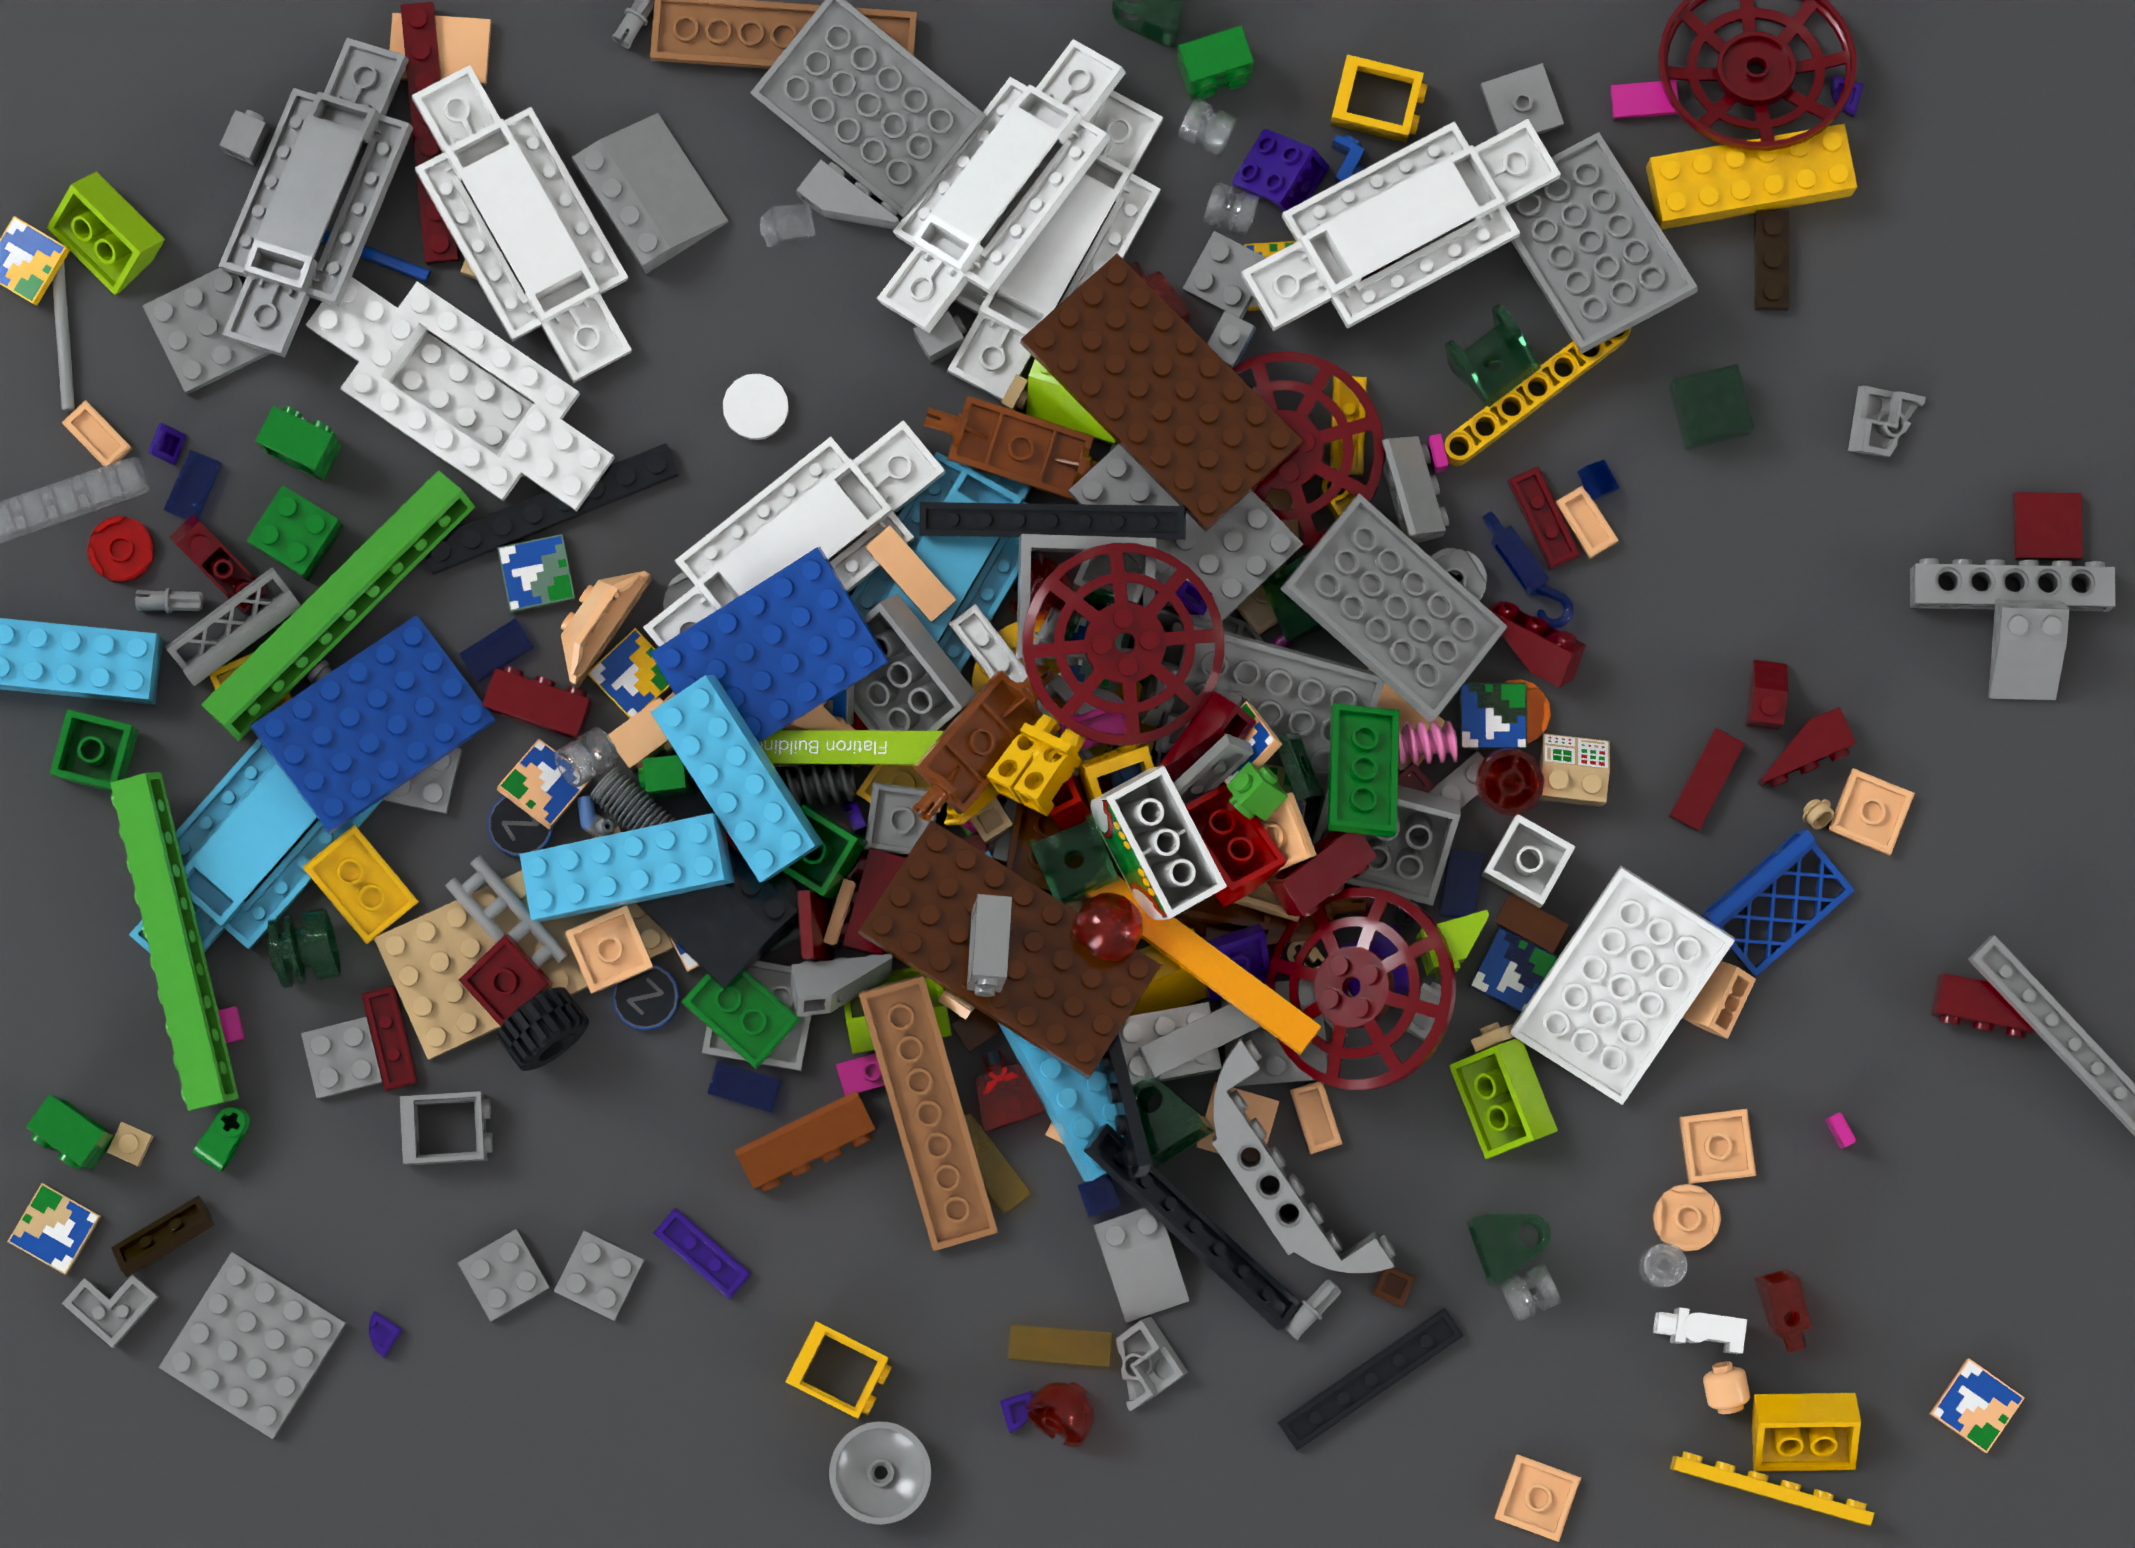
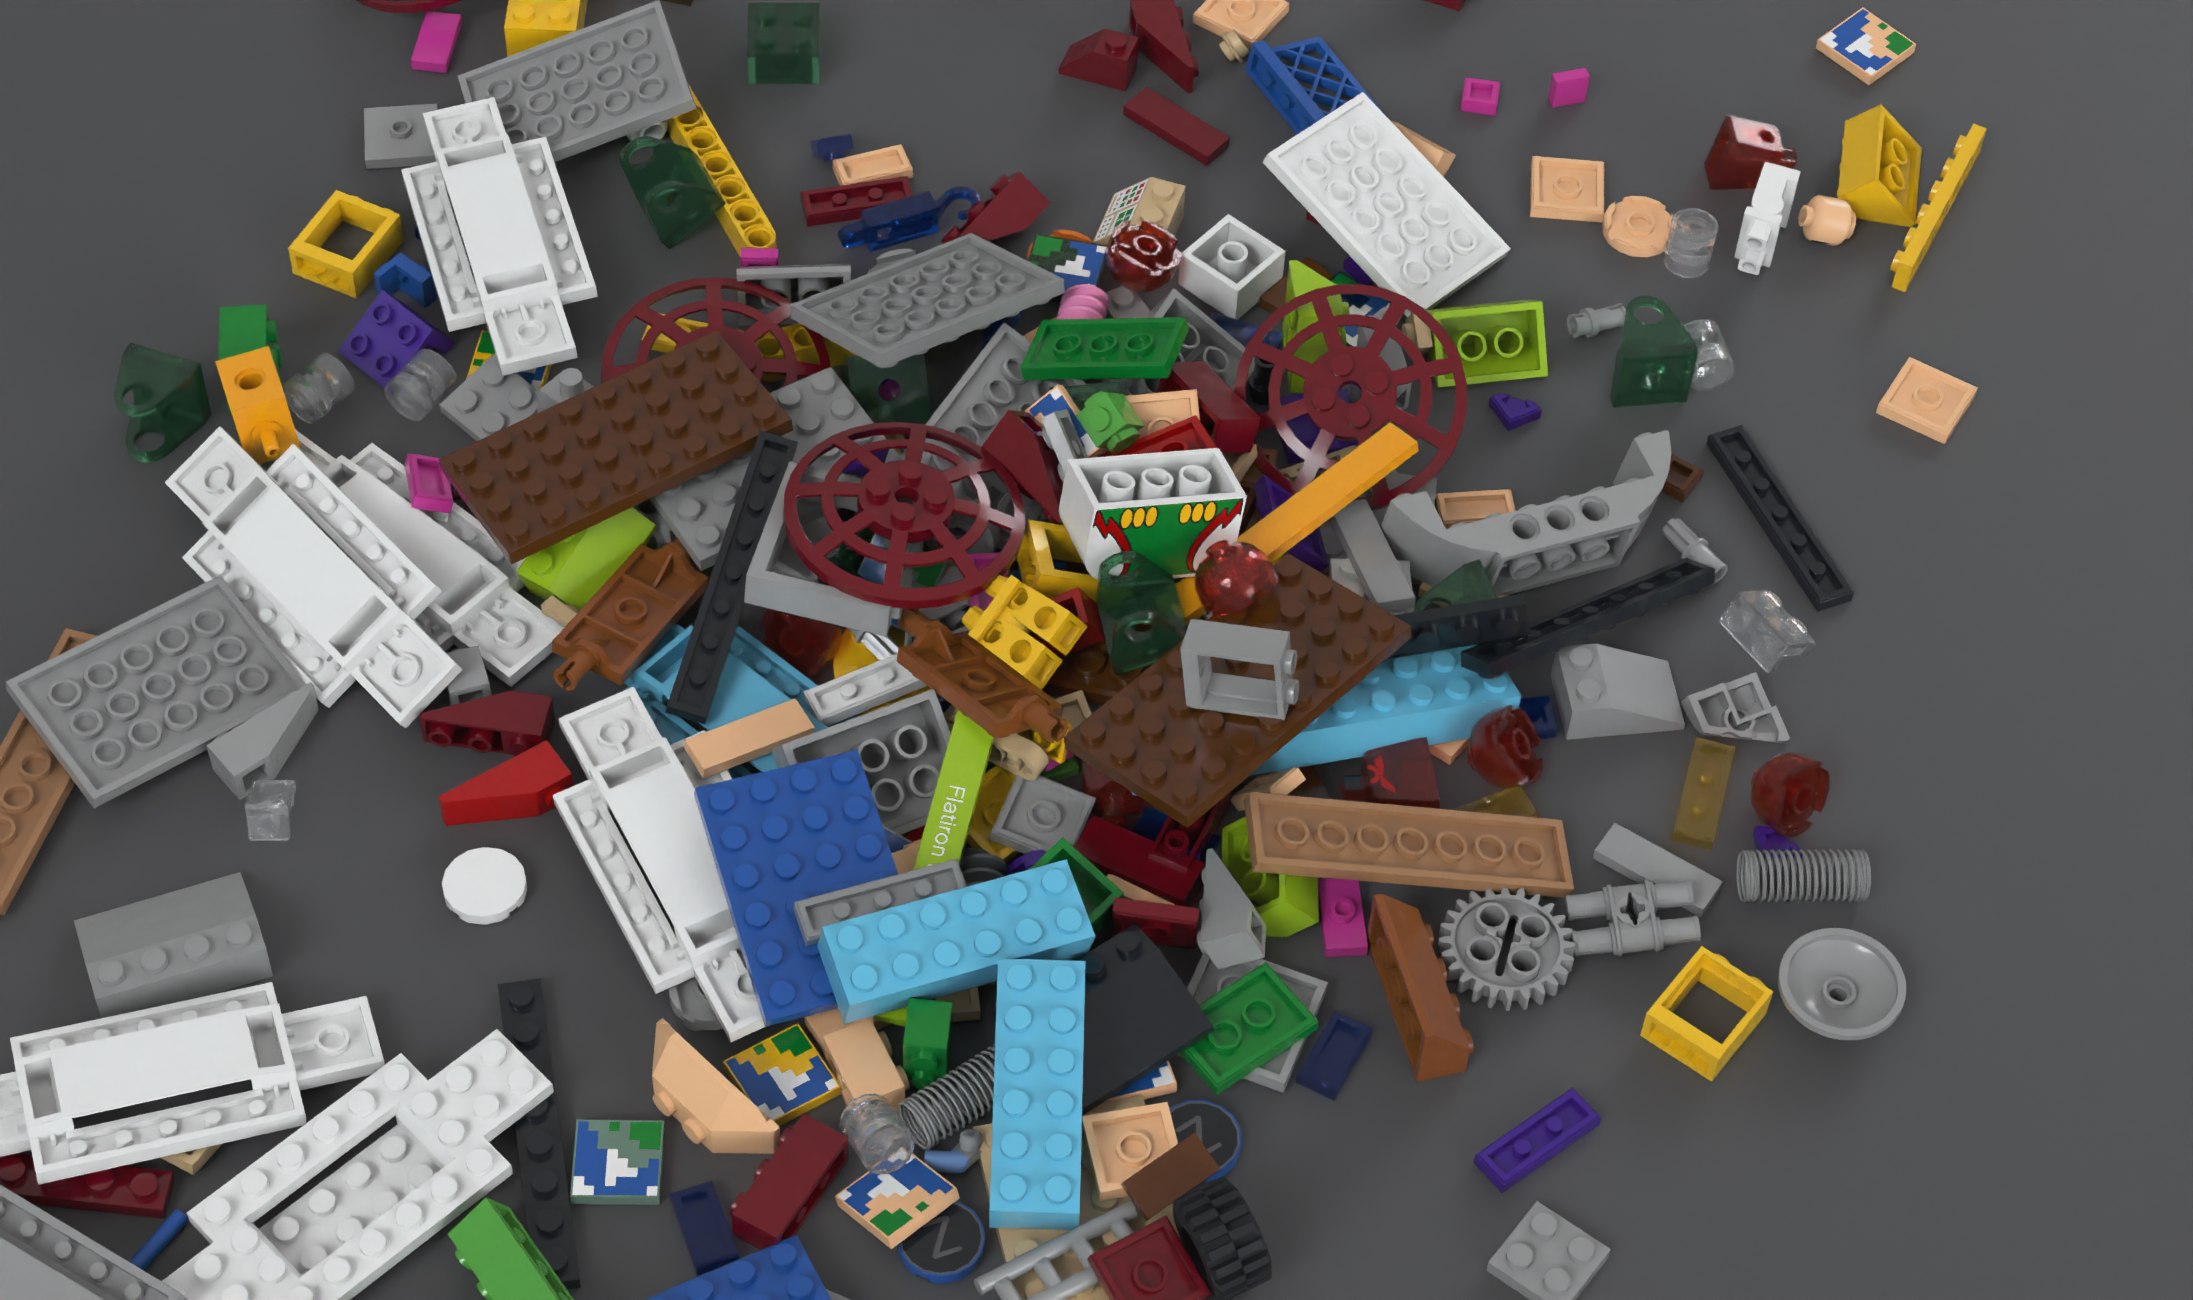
camera: 80 degrees left, 30 degrees down
(583, 980) = (1170, 1176): none -> reddish brown tile
(759, 713) = (875, 896): none -> light grey tile
(848, 410) = (510, 790): none -> red slope
(869, 1174) = (1545, 958): none -> light grey gear
(904, 377) = (495, 723): none -> dark red slope
(931, 1308) = (1643, 902): none -> light grey pin
(973, 1316) = (1644, 860): none -> light grey tile
(983, 1434) = (1855, 875): none -> light grey piece
(1050, 1178) = (1504, 748): none -> clear red cylinder
(1131, 244) = (427, 484): none -> dark pink tile
(1150, 91) = (258, 404): none -> light orange piece
(1239, 1380) = (1765, 628): none -> clear bracket
(1437, 1135) = (1513, 411): none -> dark purple tile
(1555, 1193) = (1592, 321): none -> light grey pin
(1817, 1050) = (1480, 96): none -> dark pink tile

